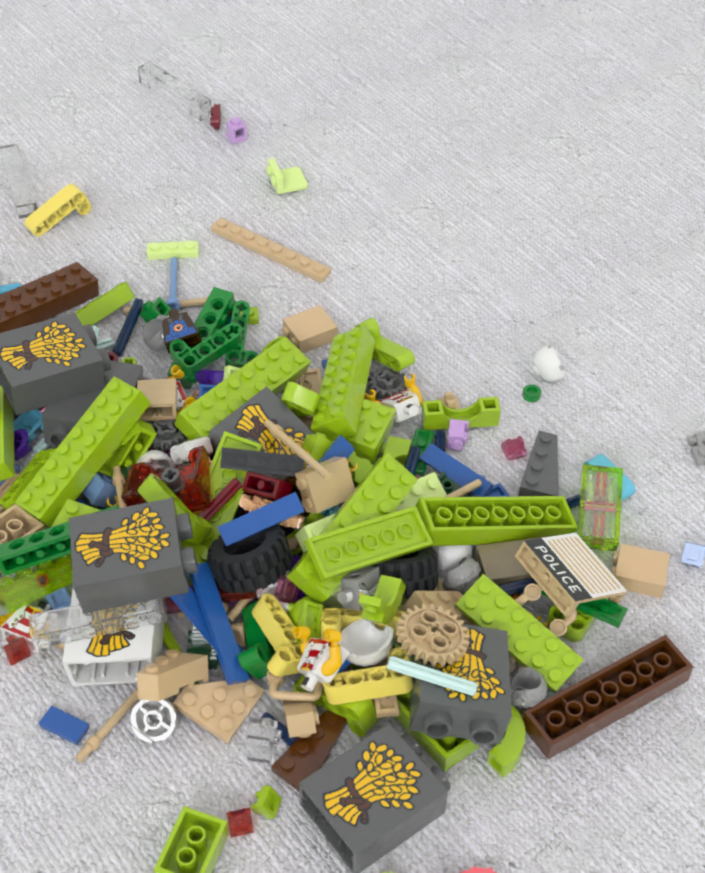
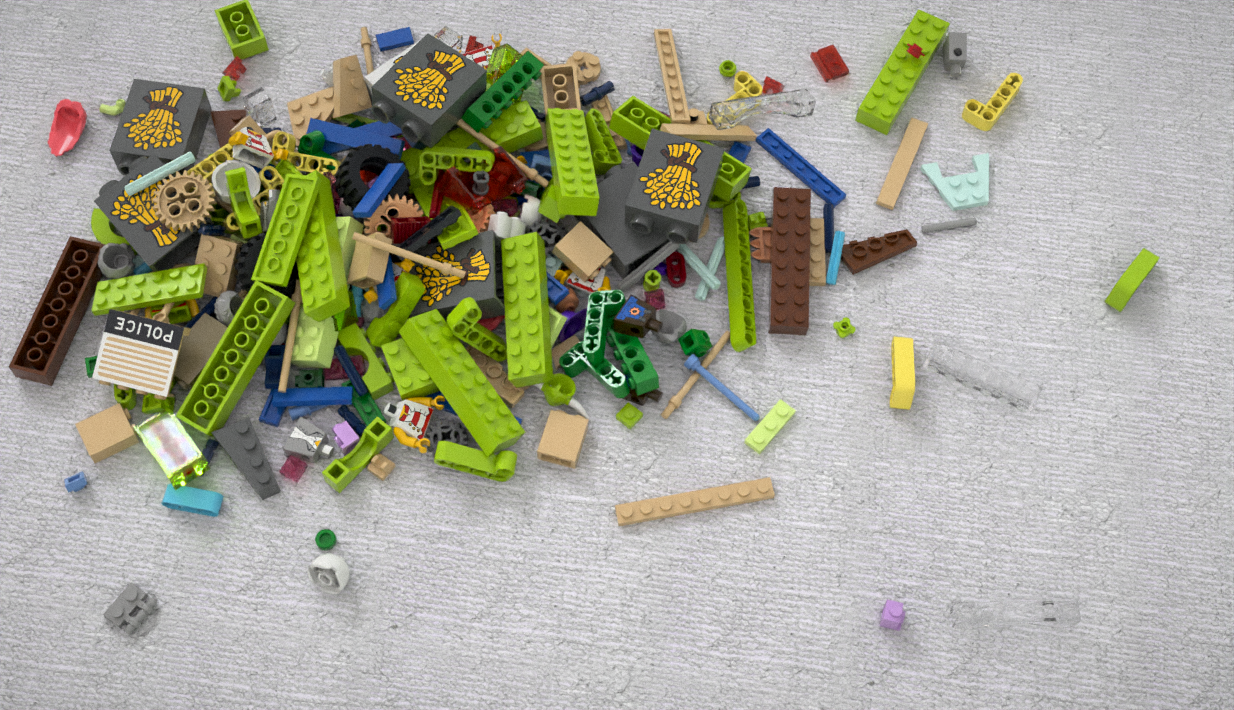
camera: 135 degrees right, 15 degrees up
(51, 260) = (841, 331): none -> lime plate
(128, 327) = (701, 317): dark blue axle -> none
(145, 360) = (655, 298): none -> clear pink tile
(216, 119) = (935, 620): dark red plate -> none
(285, 179) = (777, 596): yellowish green bracket -> none
(489, 452) = (307, 442): none -> light grey torso

